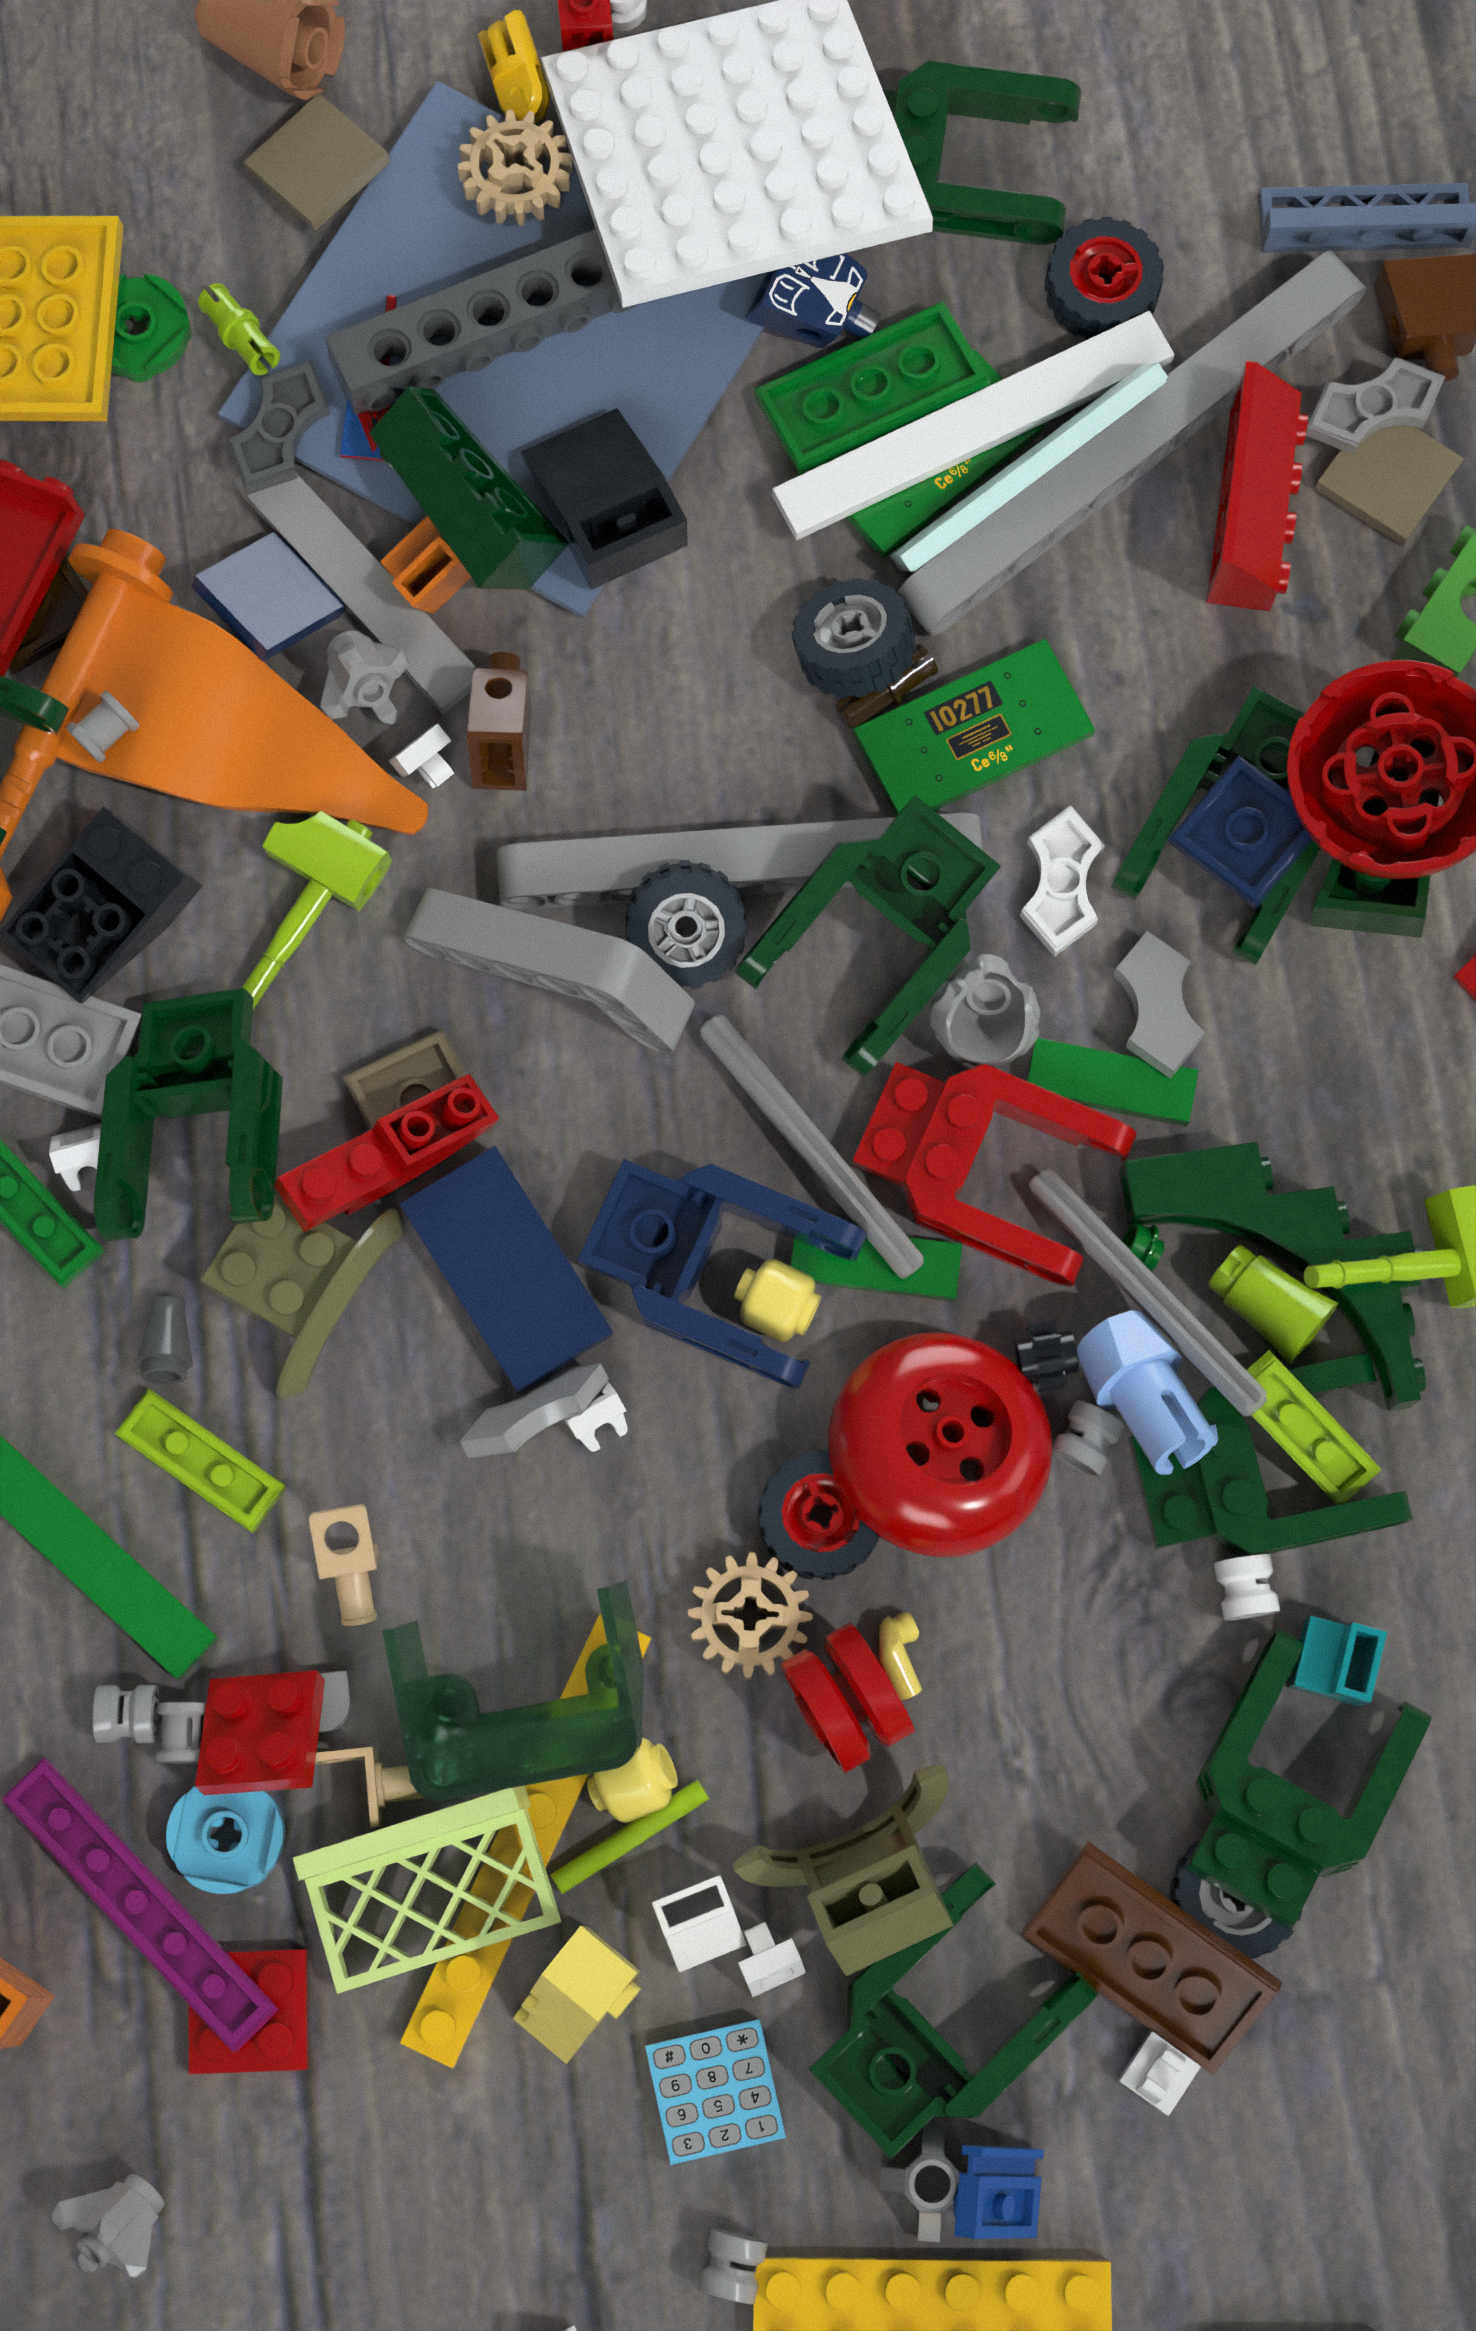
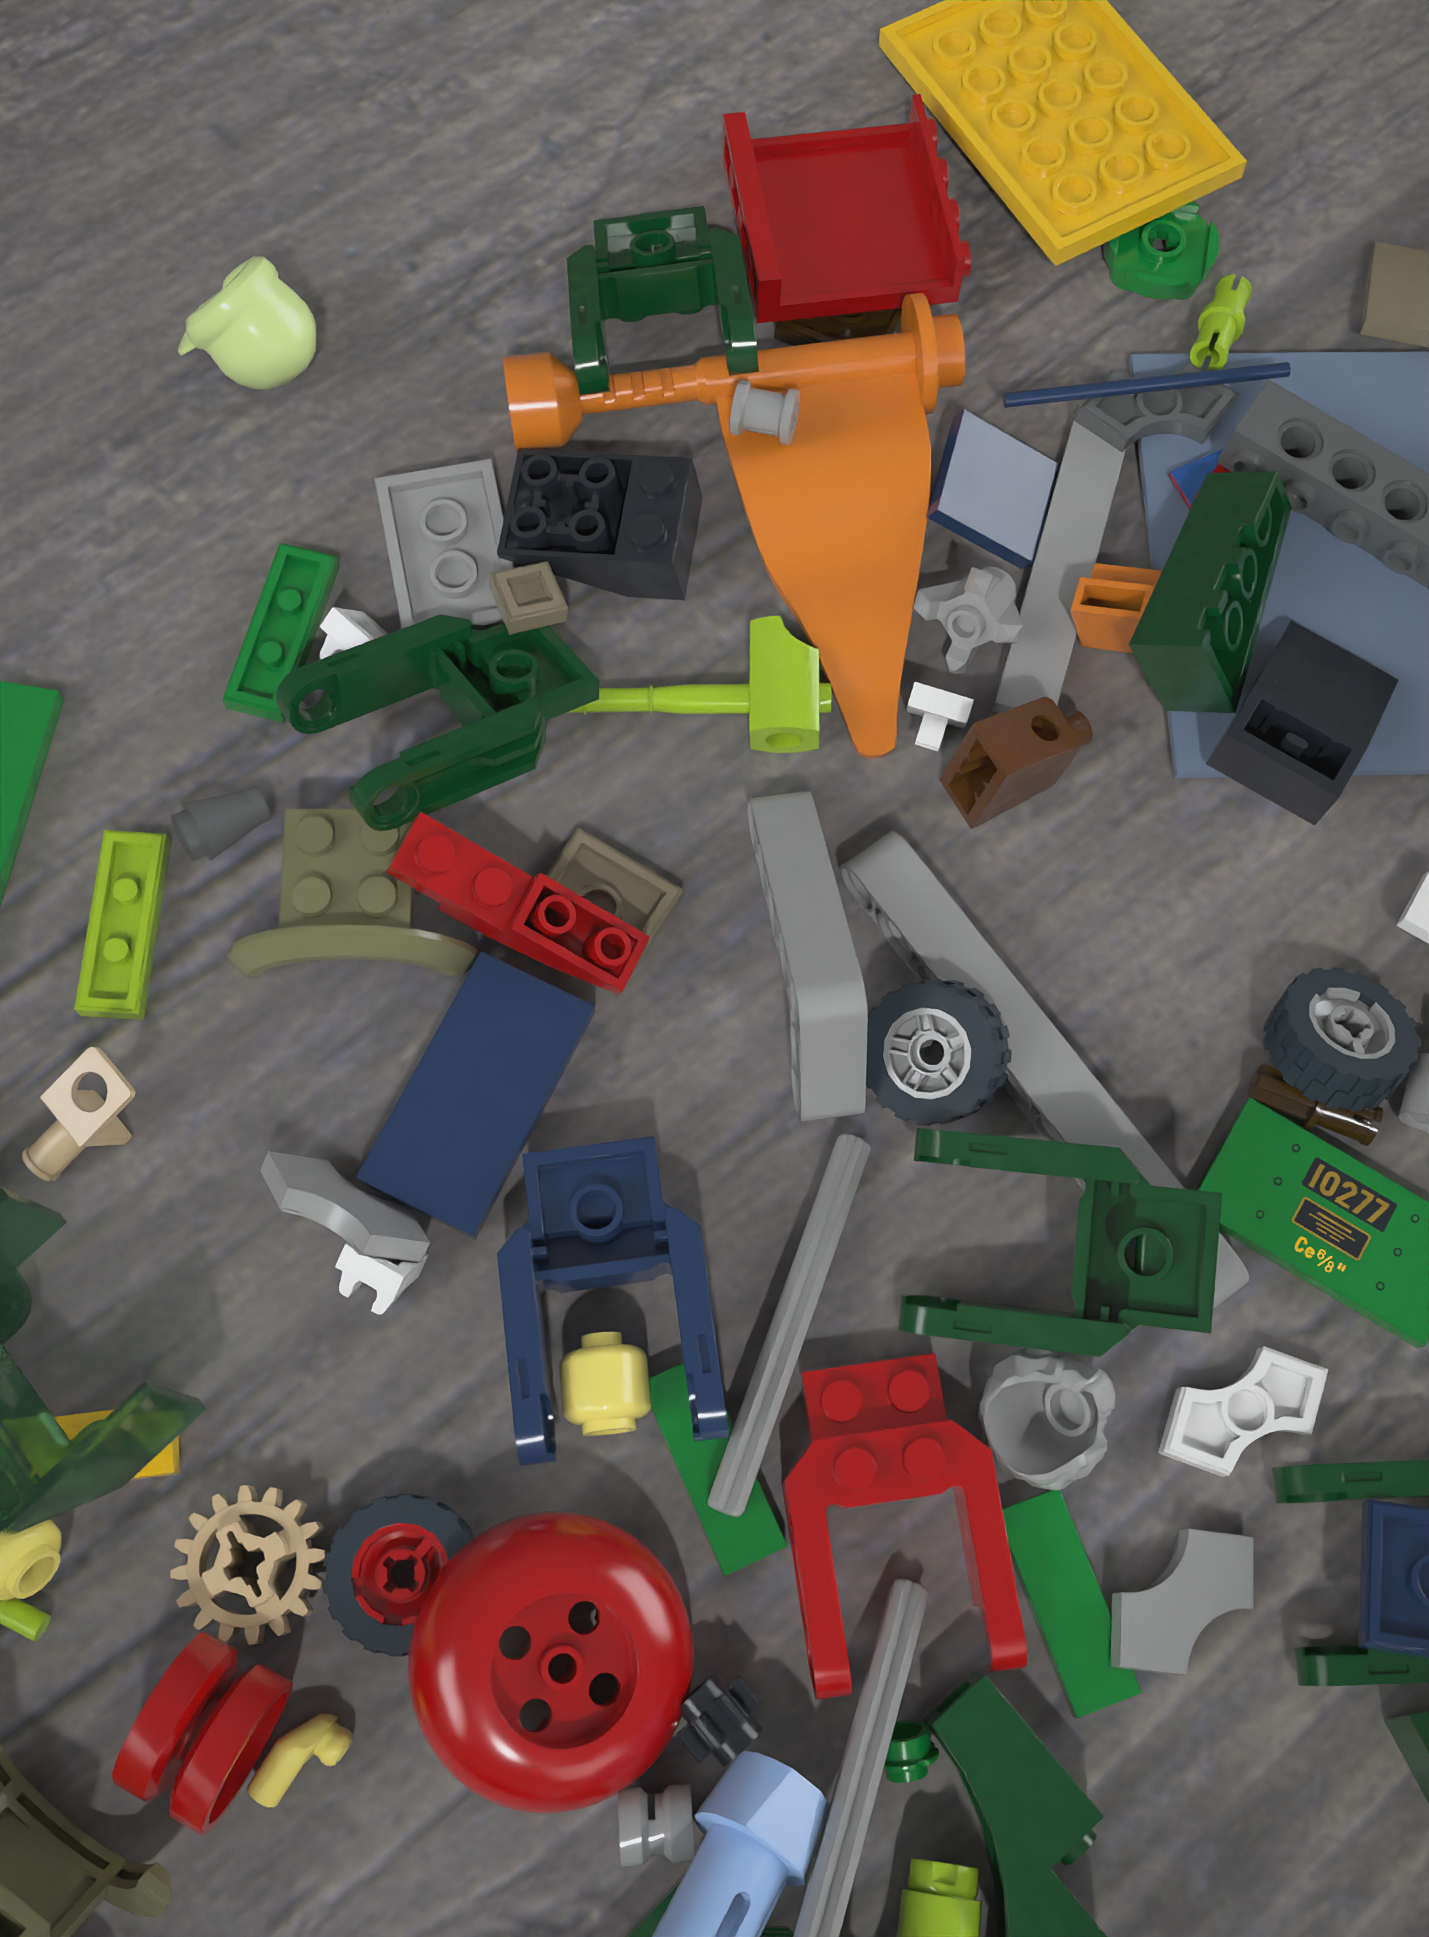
camera: 55 degrees right, 5 degrees down
(133, 1000) = (528, 597): none -> dark tan tile
(260, 424) = (1146, 384): none -> dark blue axle

